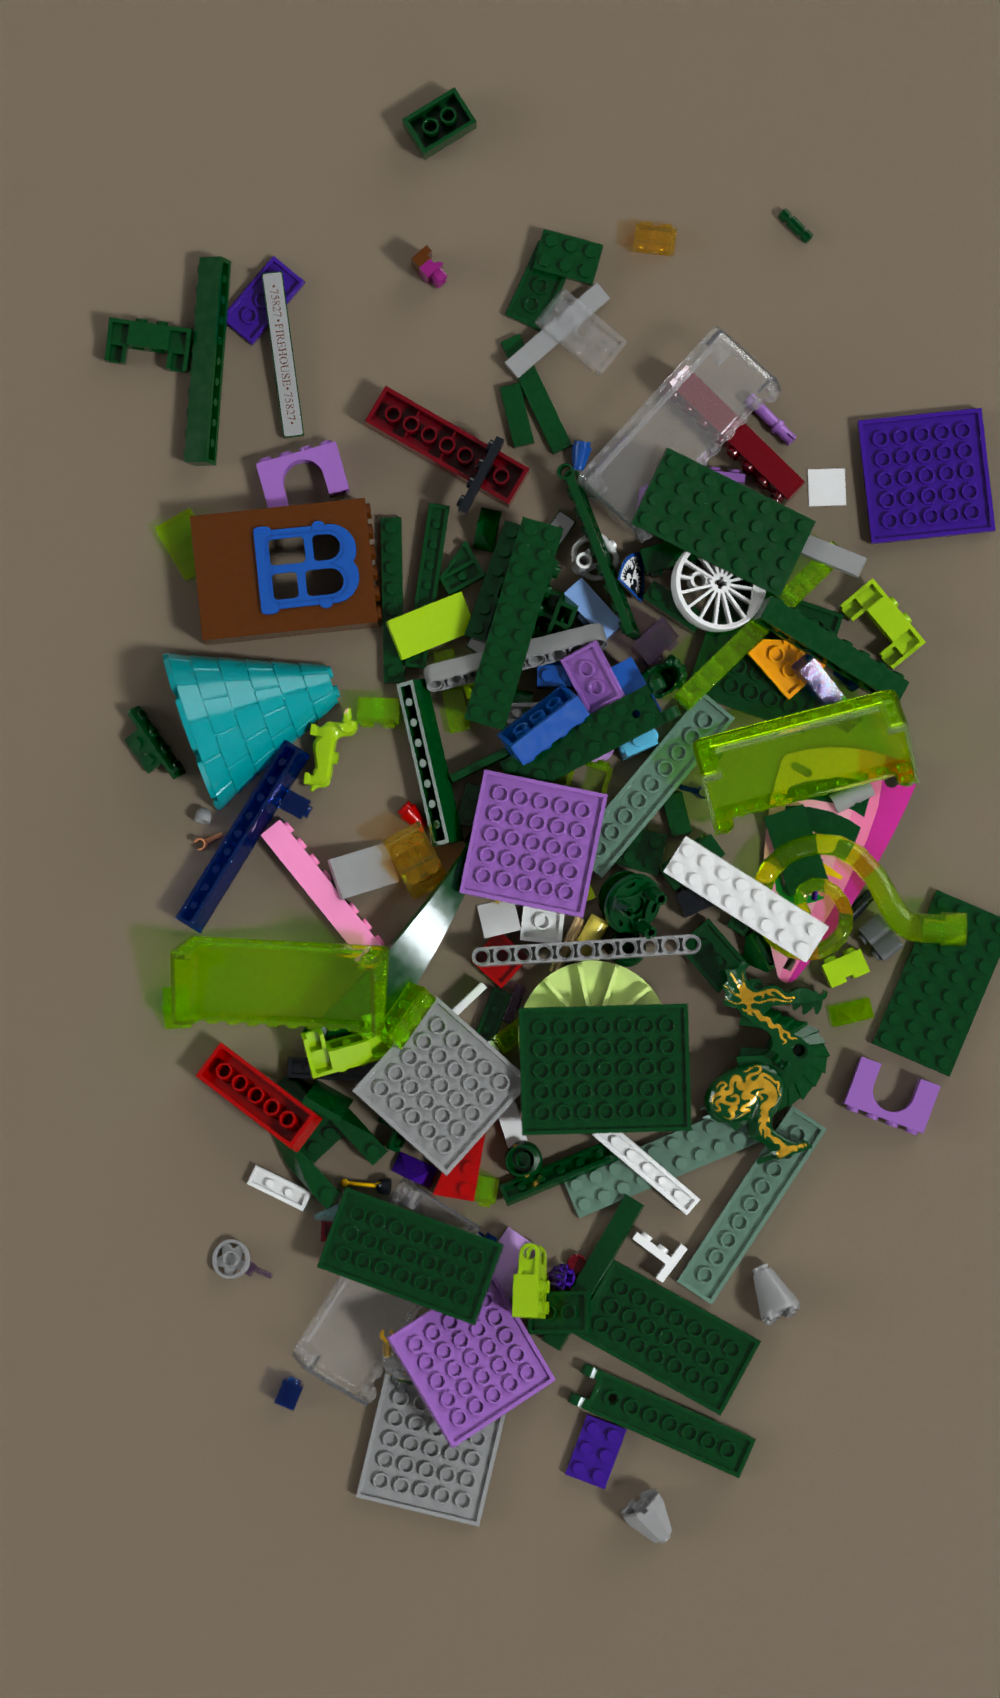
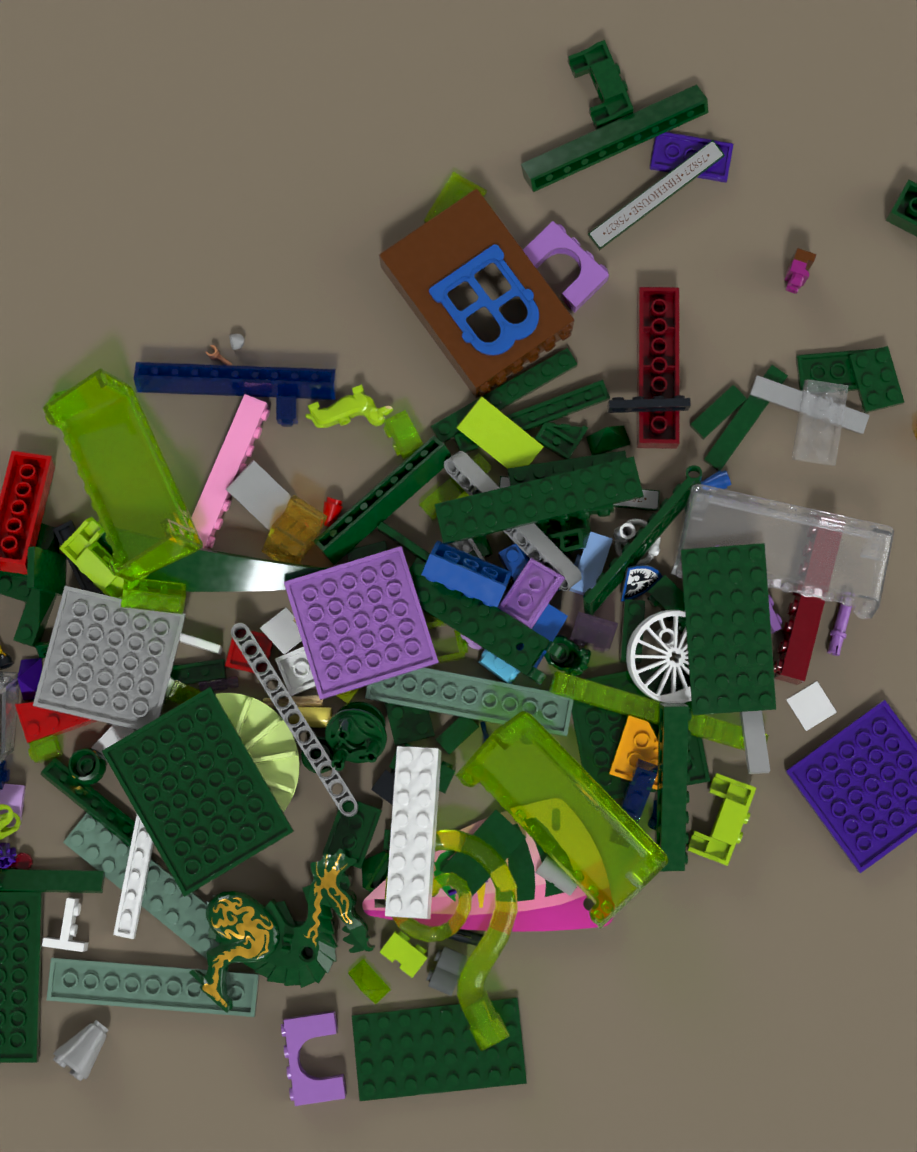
camera: 65 degrees right, 5 degrees down
(150, 747) = (271, 267): dark green bracket -> none
(244, 712) = (336, 319): teal cone -> none

